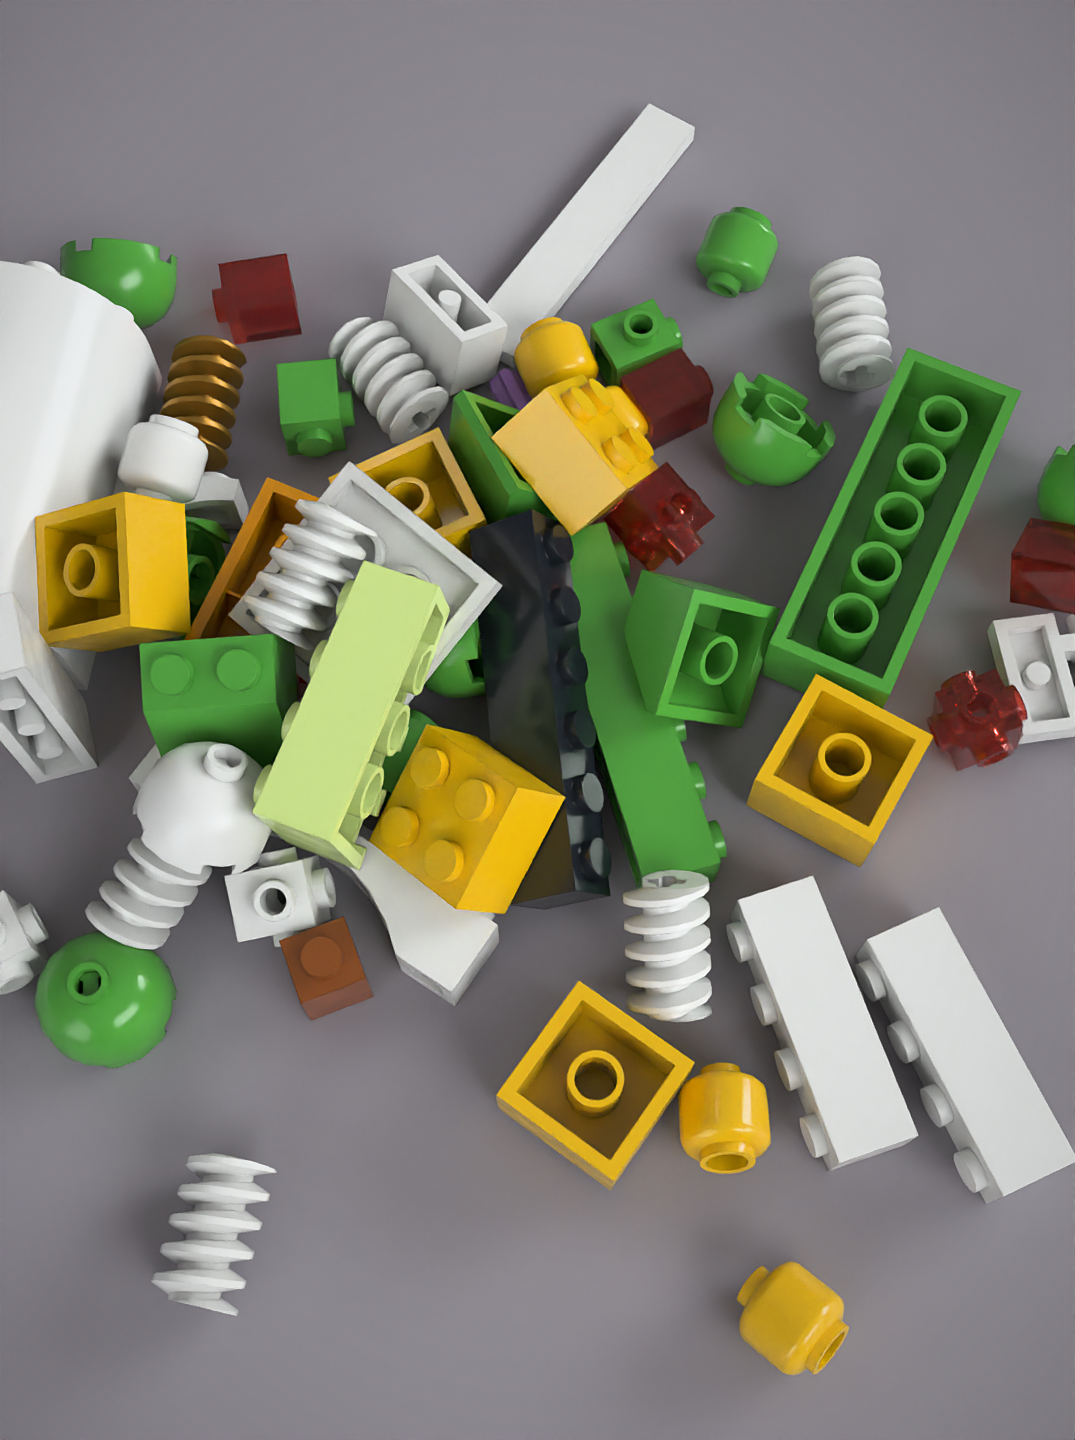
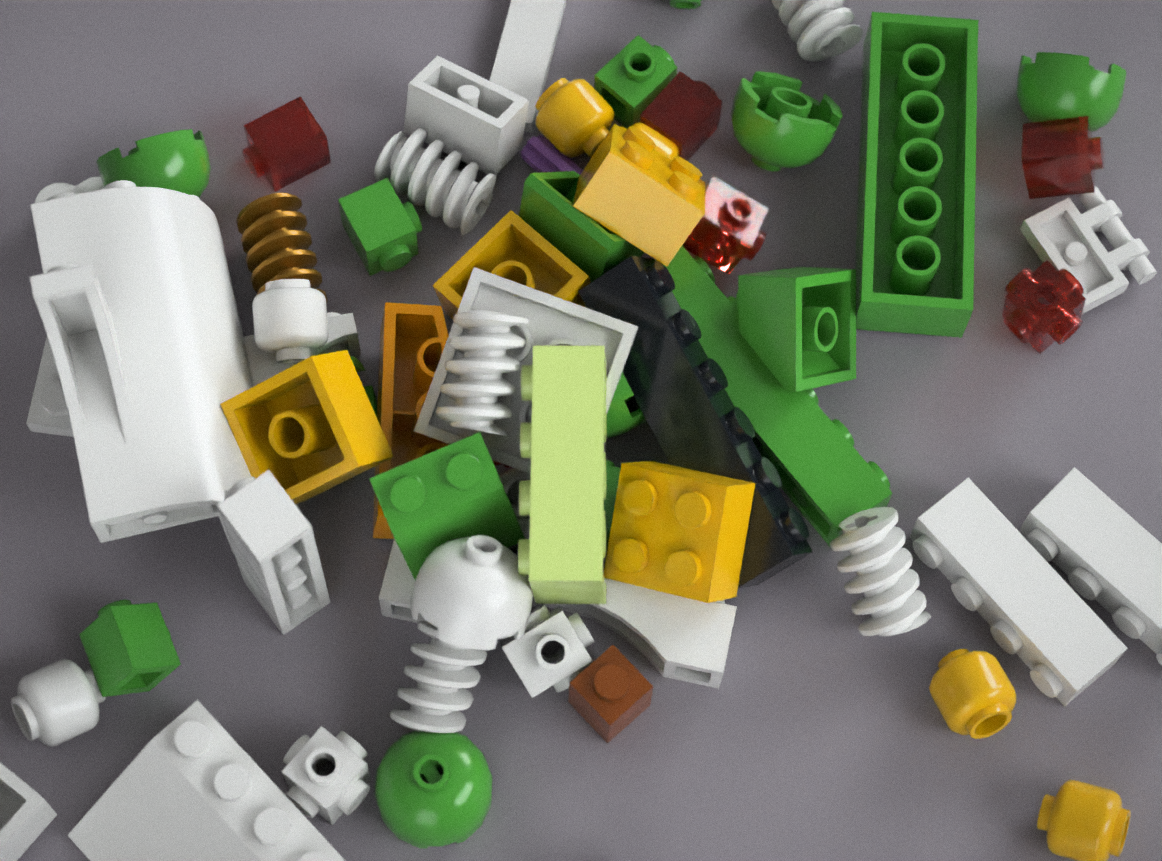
camera: 25 degrees left, 0 degrees up
(594, 1084) = (866, 704): yellow brick -> none
(838, 770) = (953, 386): yellow brick -> none

